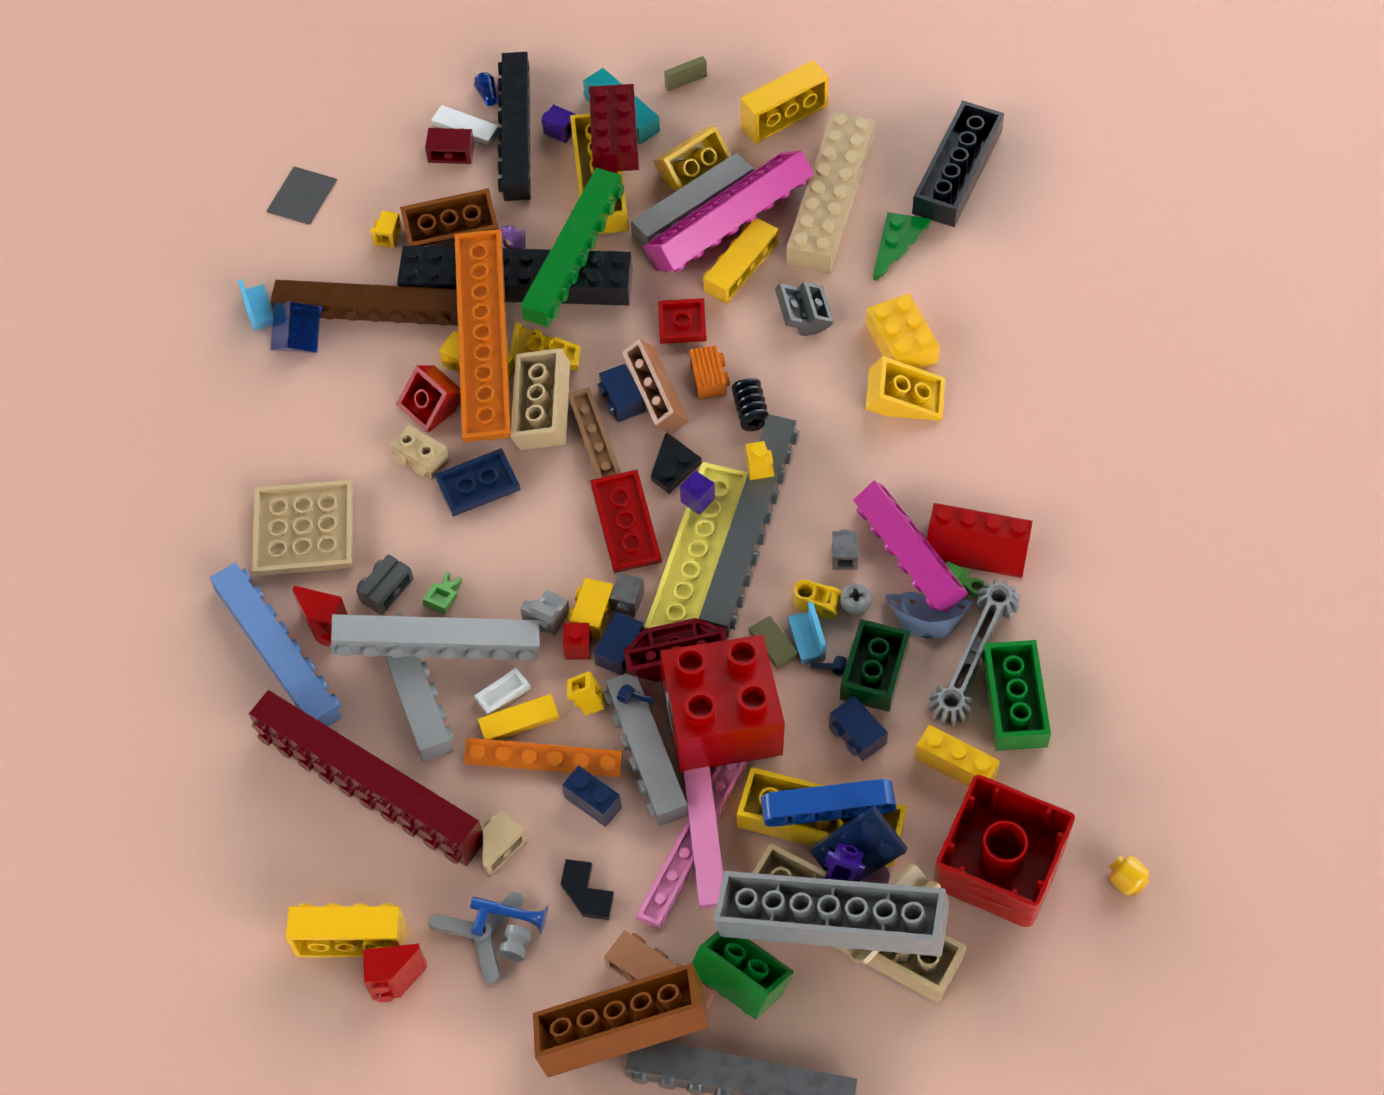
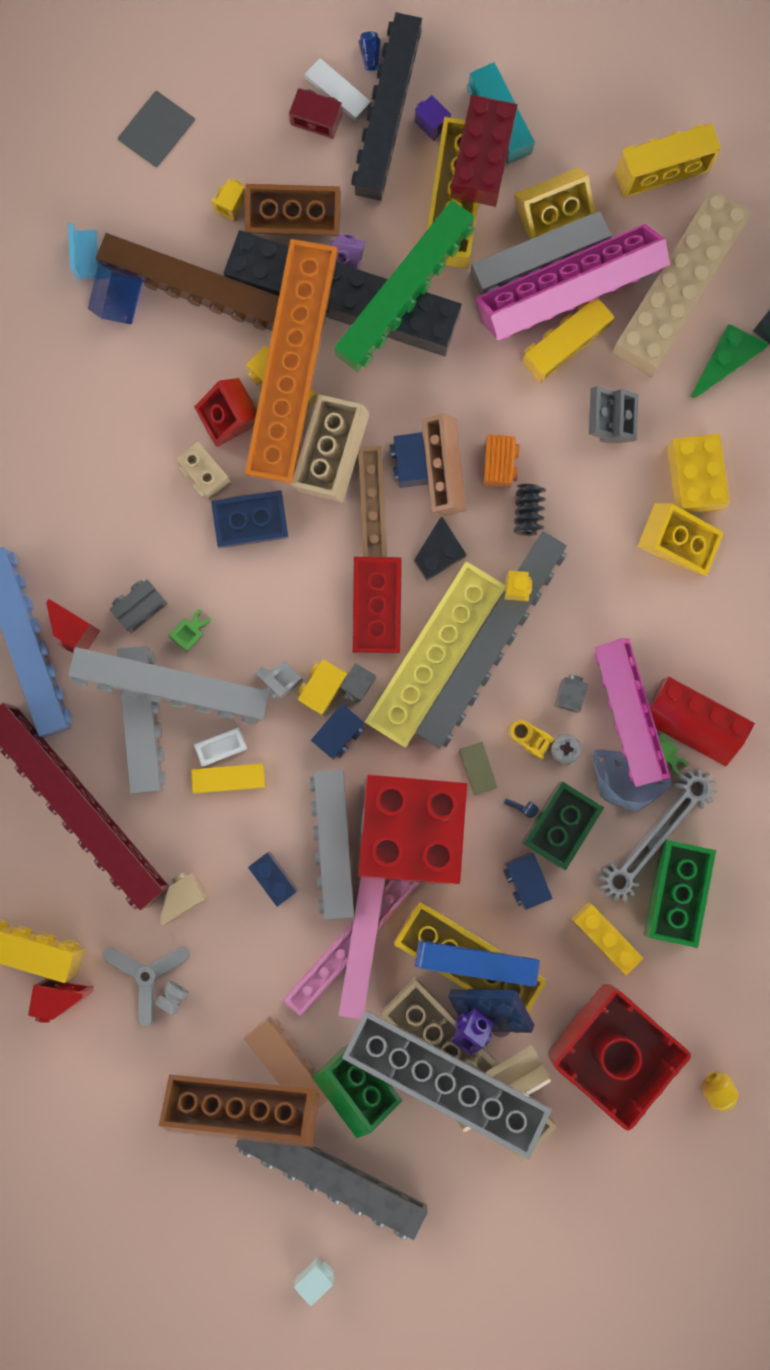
camera: 10 degrees right, 25 degrees up
(303, 528) = (76, 521): tan plate -> none
(485, 906) = (156, 959): blue piece -> none
(533, 340) = (342, 382): yellow wing -> none
(542, 756) = (240, 825): orange plate -> none
(577, 641) = (299, 718): red brick -> none
(585, 693) = (293, 777): yellow brick -> none
(588, 901) = (245, 974): black tile -> none
(628, 692) = (328, 794): dark blue hand -> none
(643, 654) = (384, 755): dark red wedge -> none
(682, 321) = (491, 393): red plate -> none
(685, 73) = (577, 90): olive tile -> none
(697, 492) = (451, 599): dark purple brick -> none
(808, 635) = (510, 771): medium azure panel -> none

